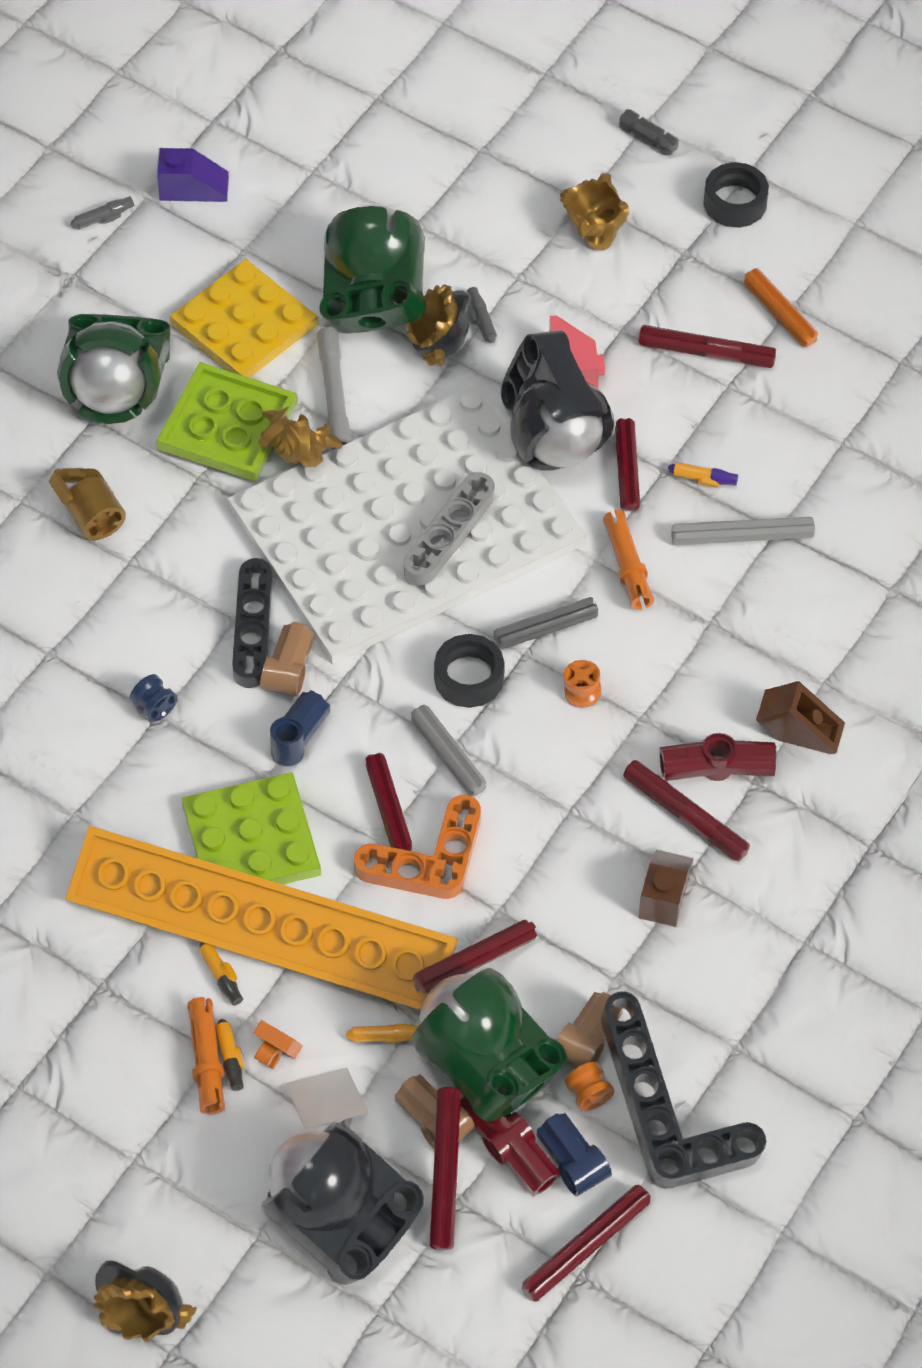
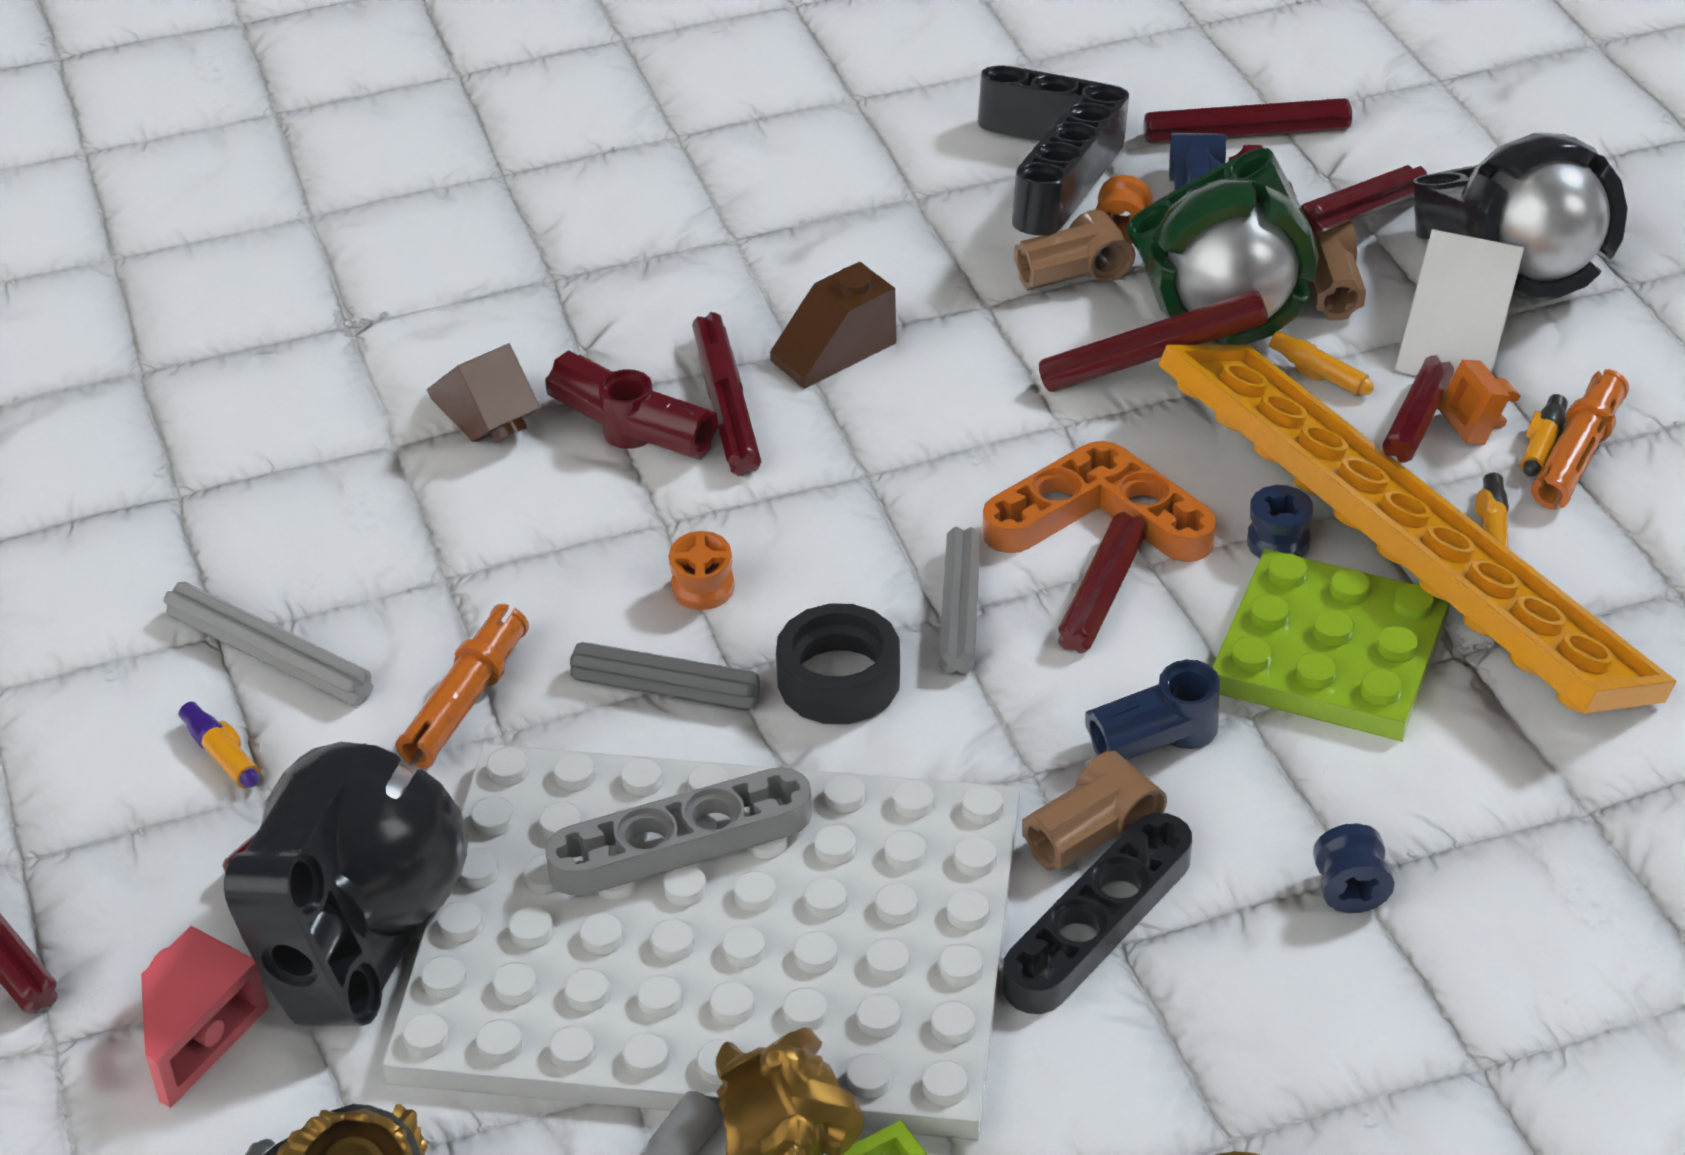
camera: 140 degrees left, 15 degrees down
(305, 1017) = (1418, 409): none -> dark red axle
(328, 877) = (1280, 520): none -> dark blue wheel

